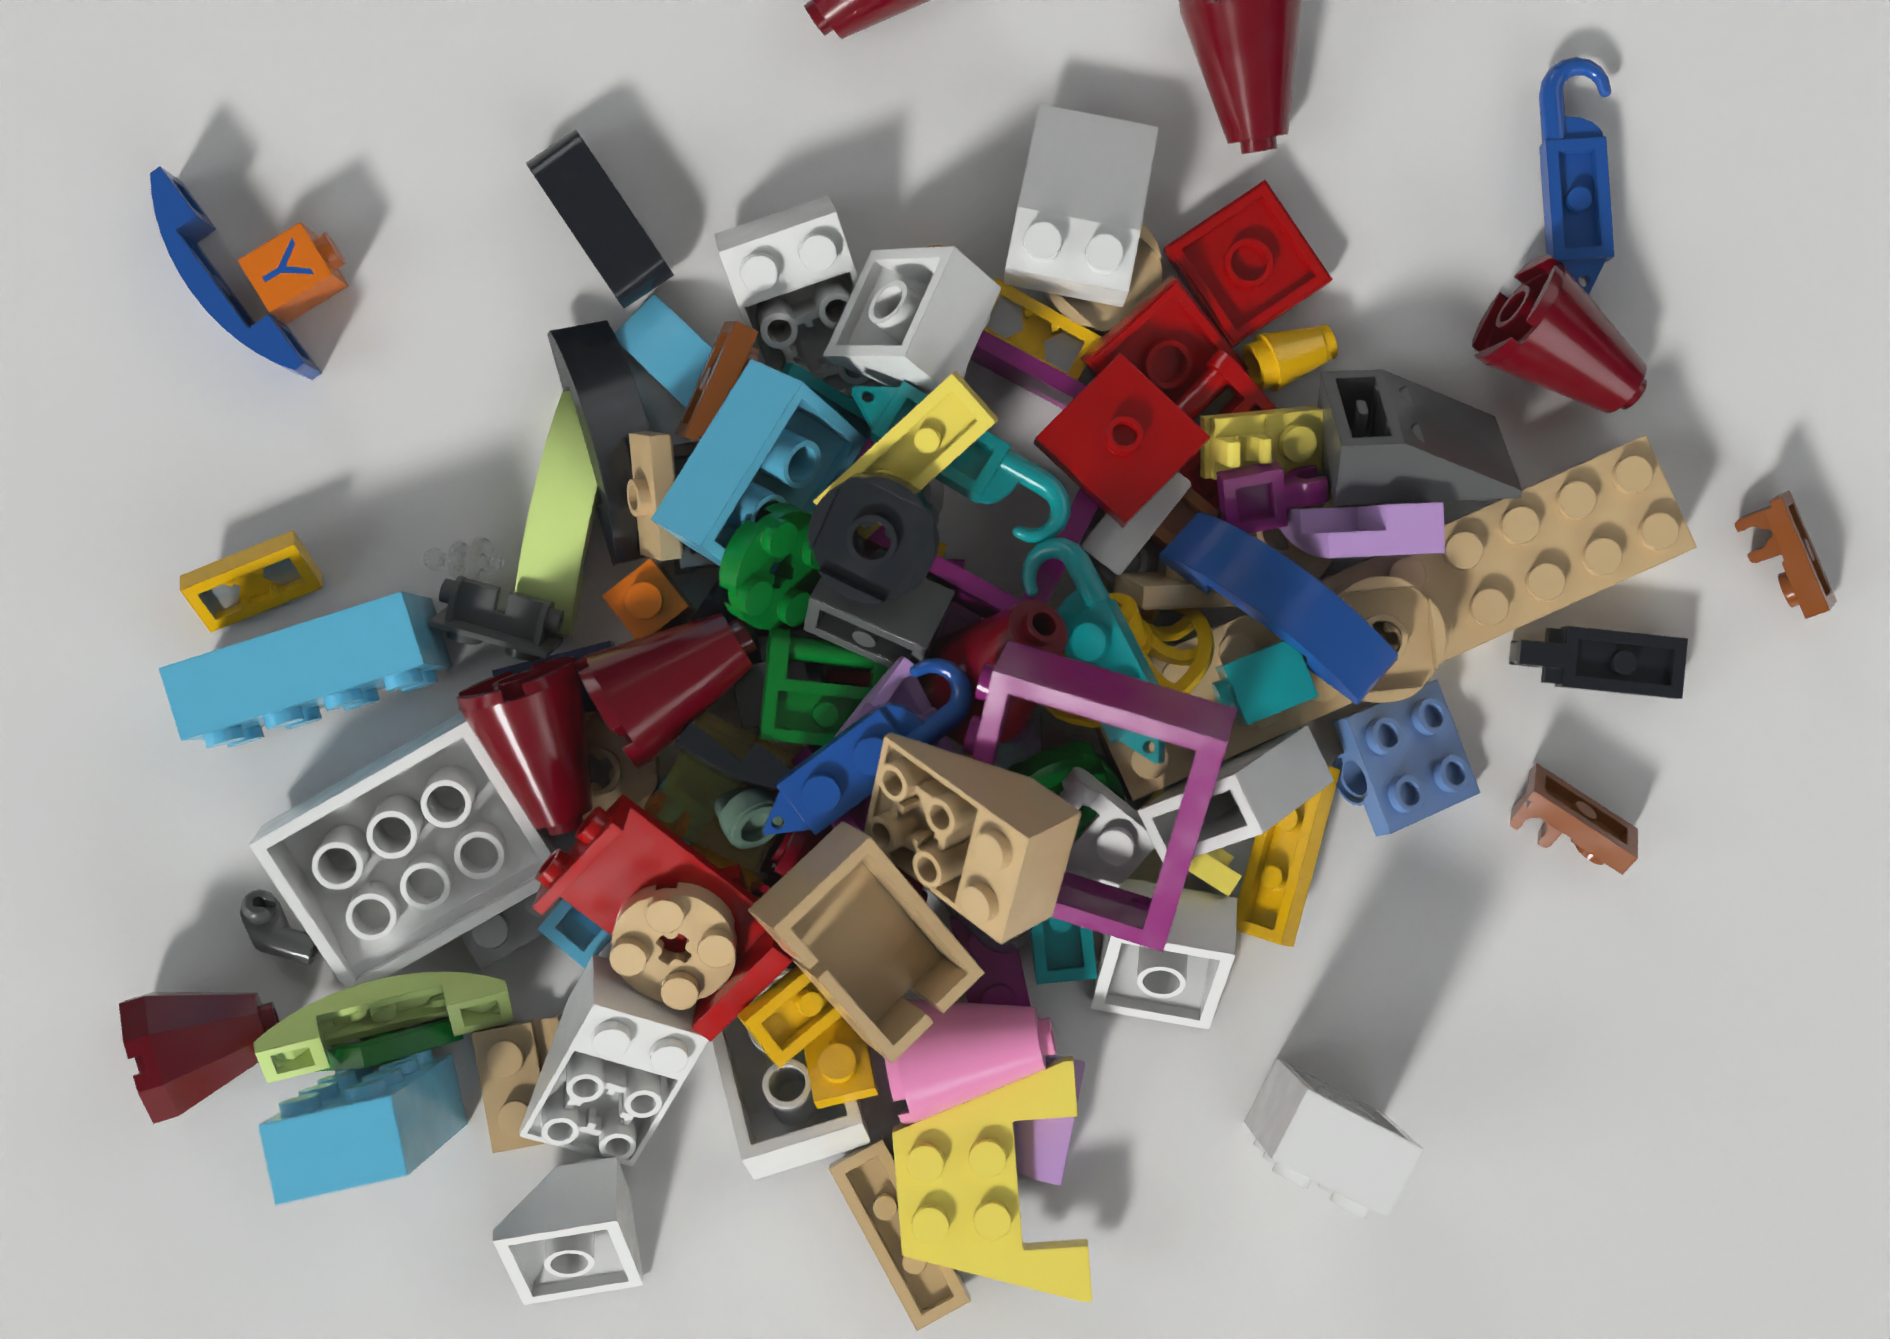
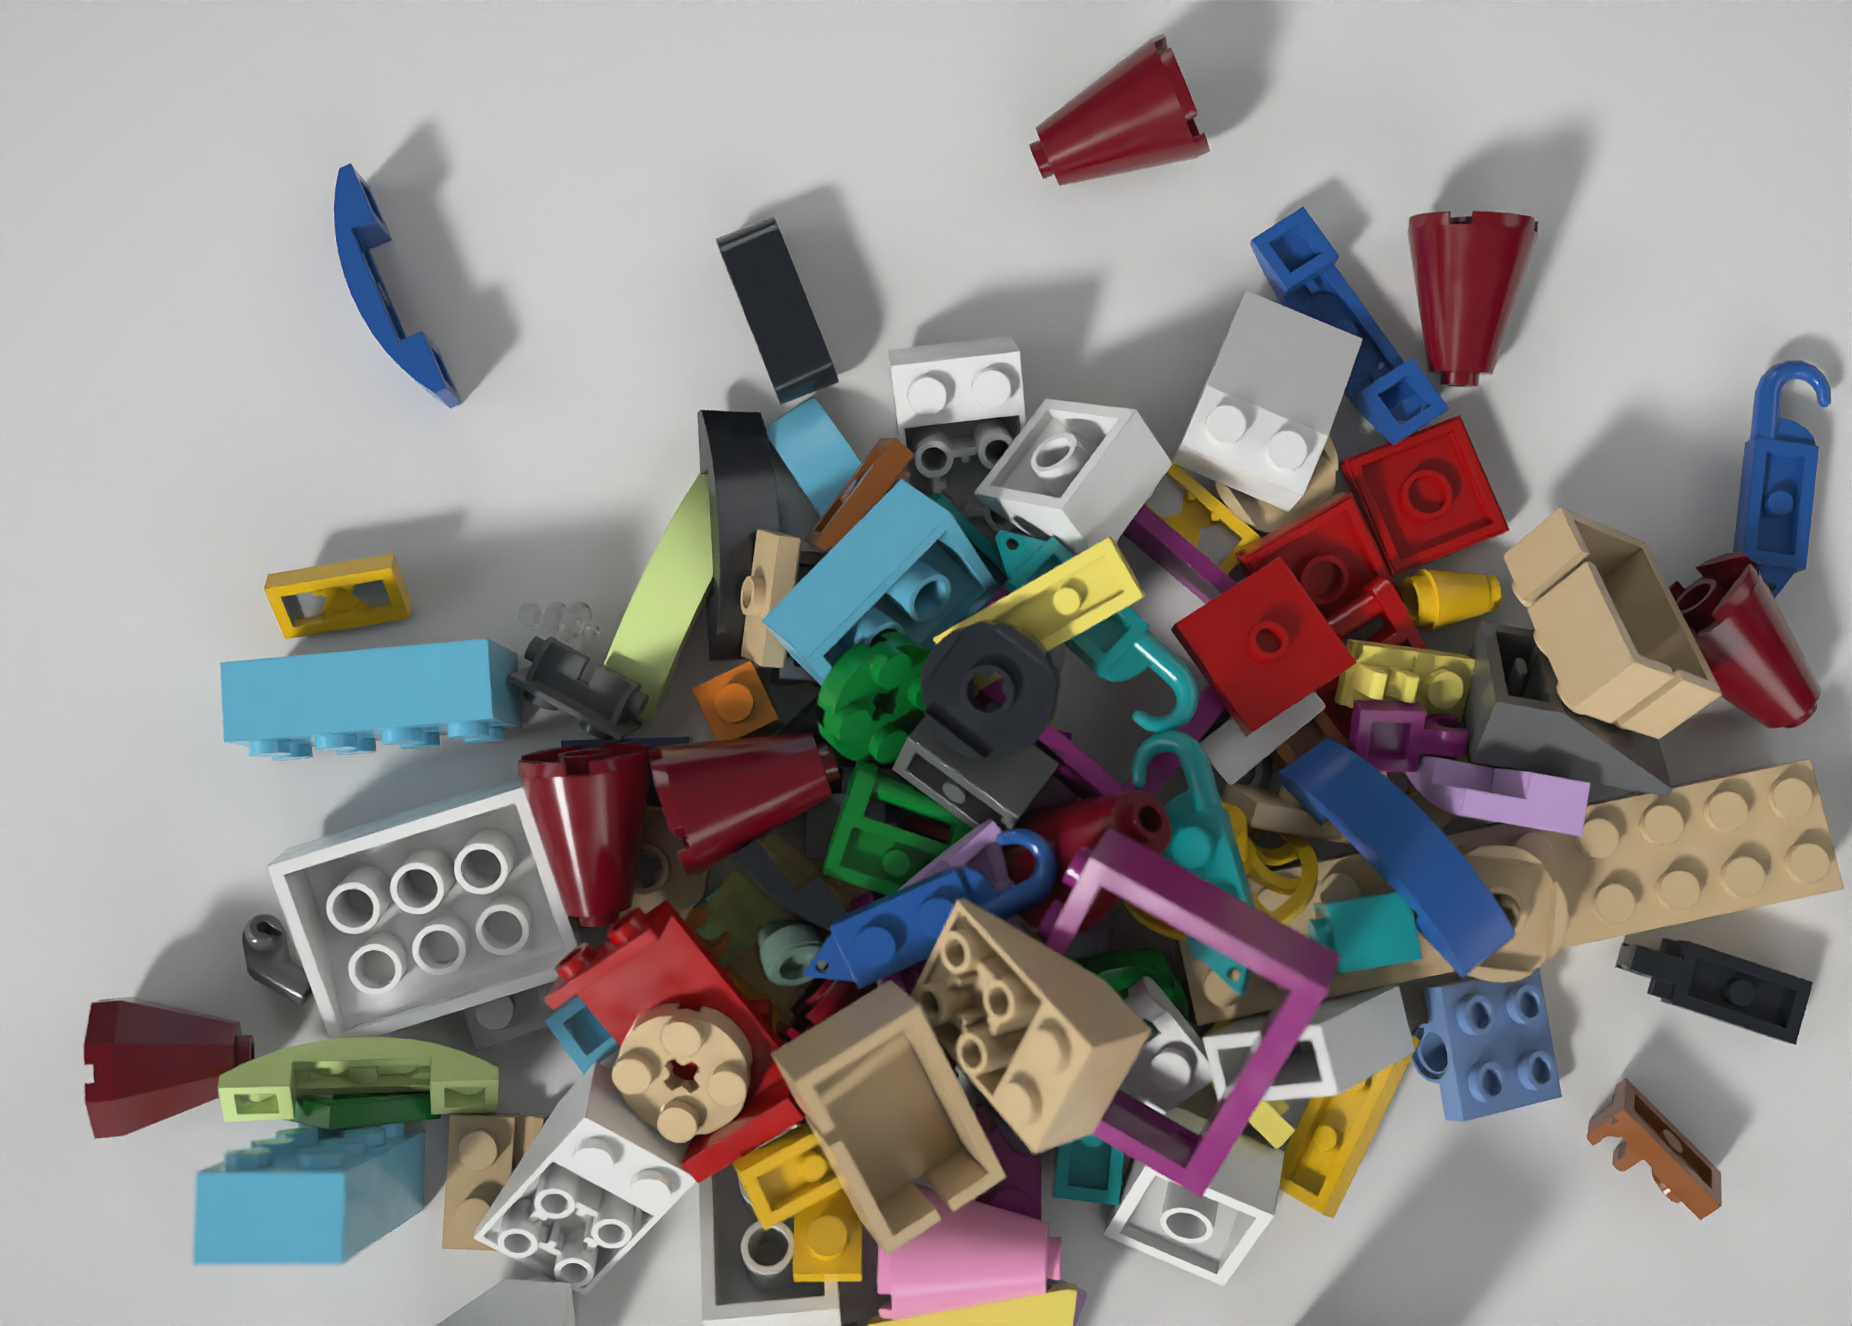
camera: 20 degrees right, 5 degrees down
(295, 271) = (459, 296): orange brick -> none
(1098, 83) = (1304, 278): none -> blue slope
(1435, 350) = (1609, 625): none -> tan piece

